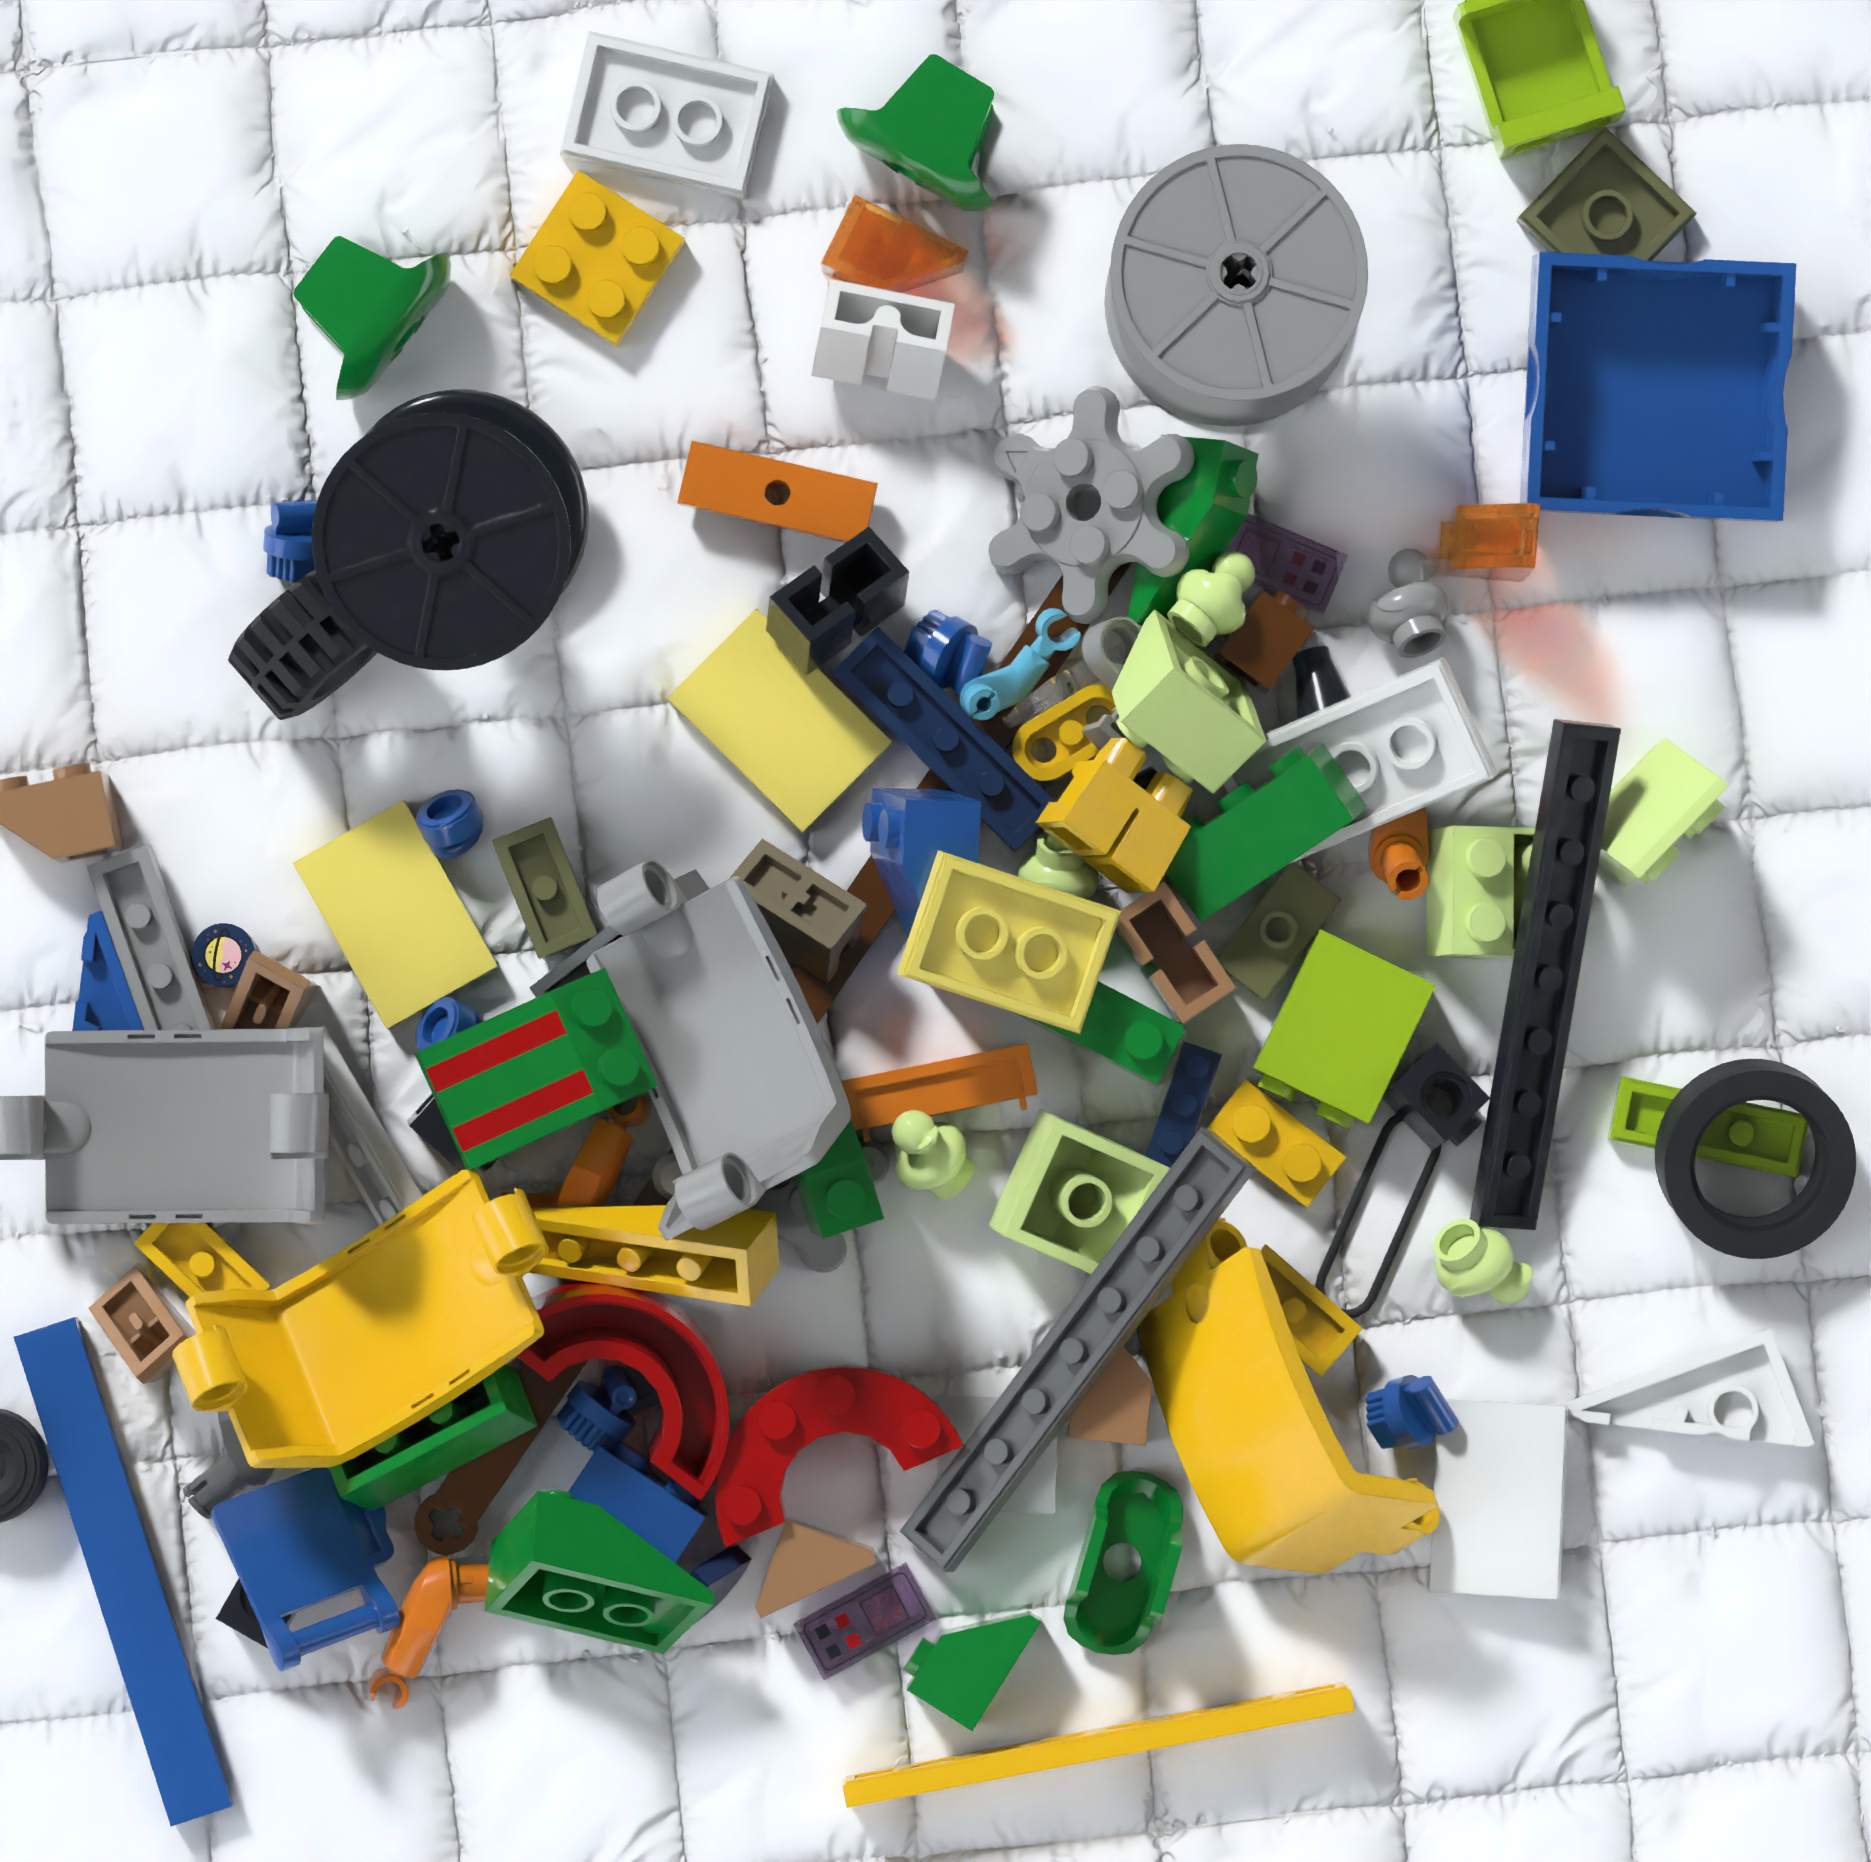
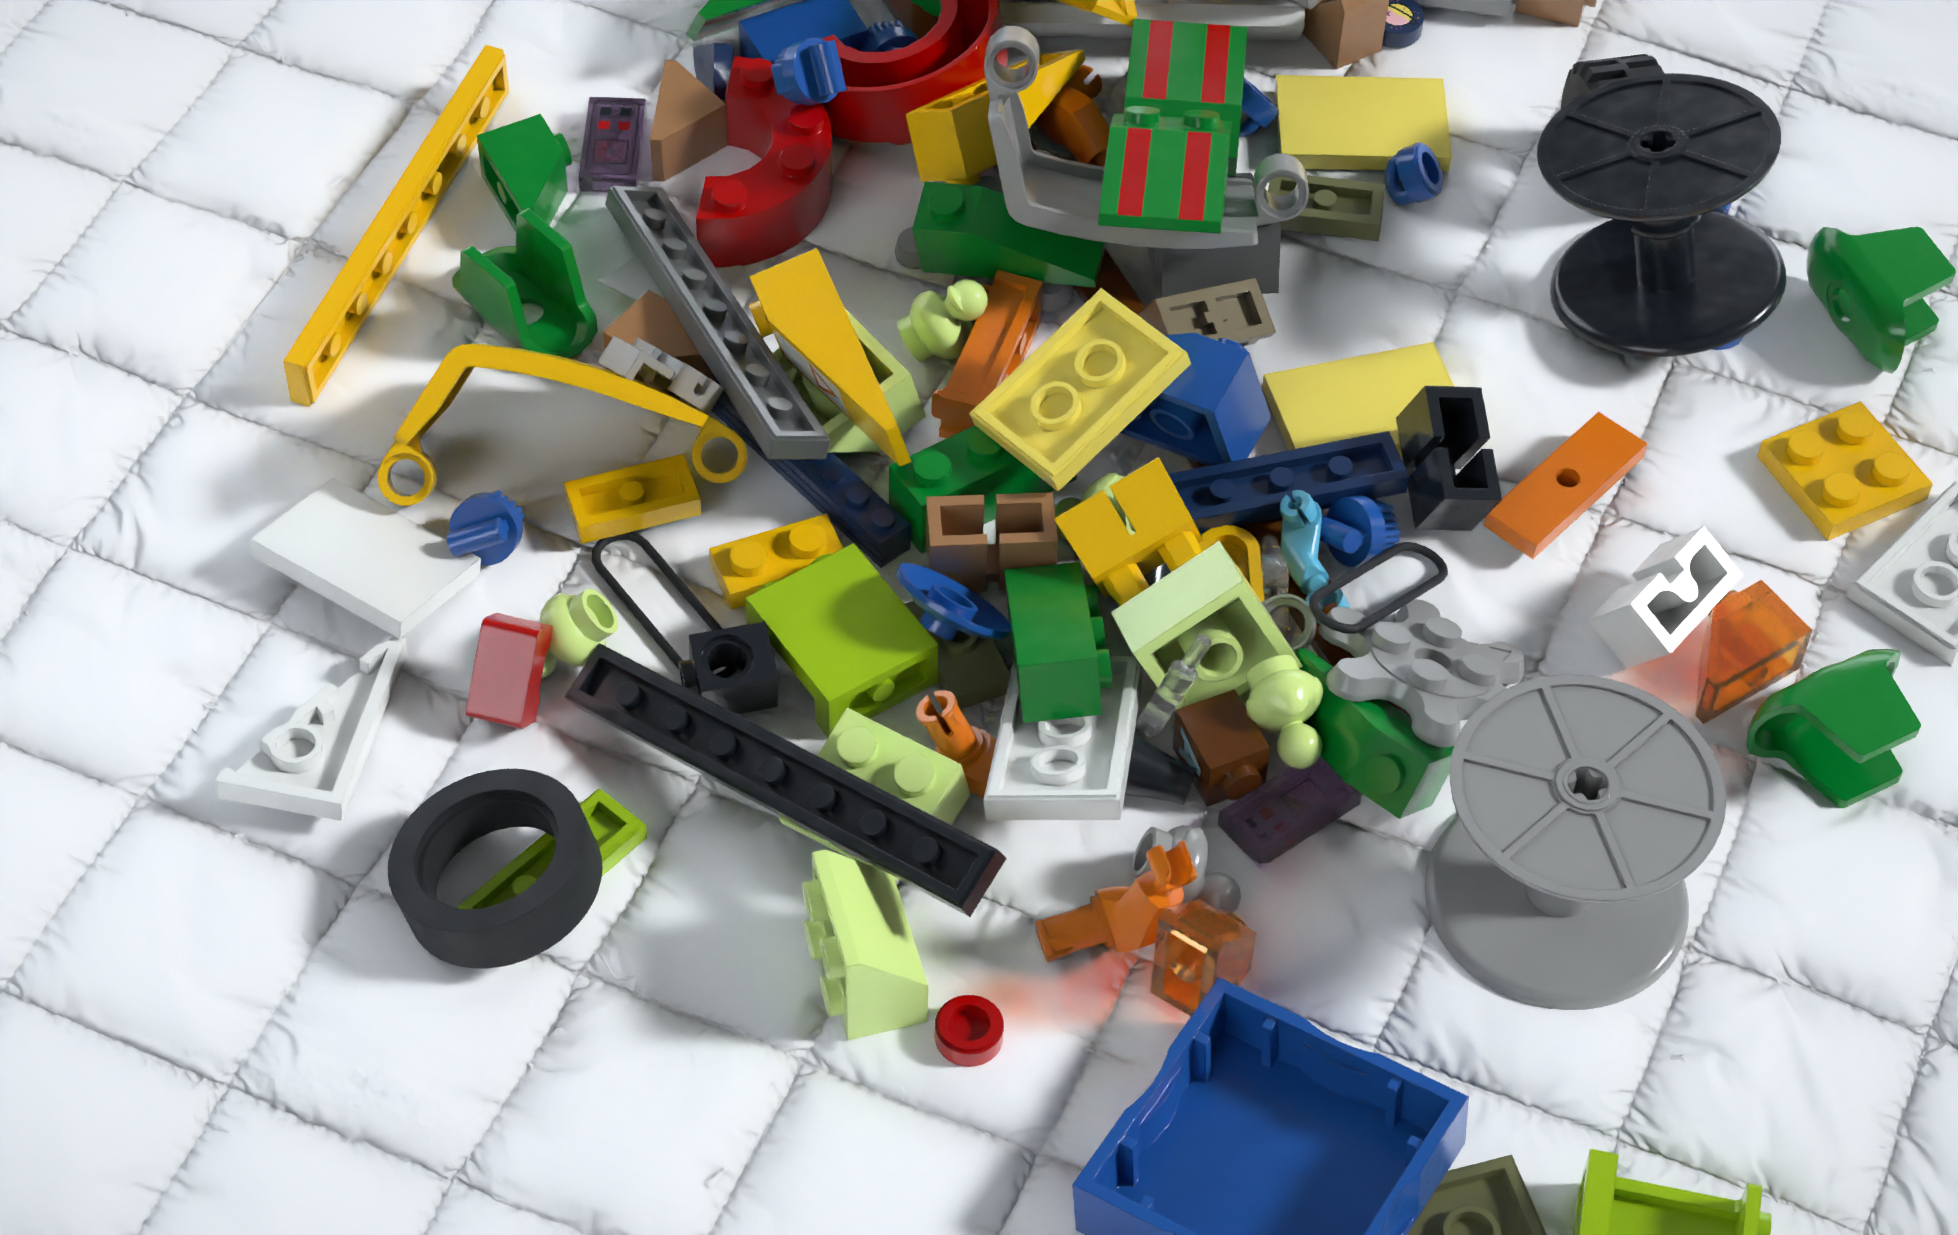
camera: 120 degrees right, 35 degrees down
(711, 1000) = (1166, 171): none -> green slope
(740, 1436) = (809, 72): none -> blue piece
(1017, 567) = (1388, 609): none -> black piece
(1072, 1220) = (820, 342): none -> yellow slope
(1197, 1335) = (662, 371): none -> light grey piece
(1273, 705) = (1171, 690): none -> clear hand
(1274, 939) = (950, 605): none -> blue dish
(1490, 631) = (1121, 914): none -> orange arm
(1557, 1280) = (508, 670): none -> piece
(1652, 701) = (969, 1030): none -> red tile

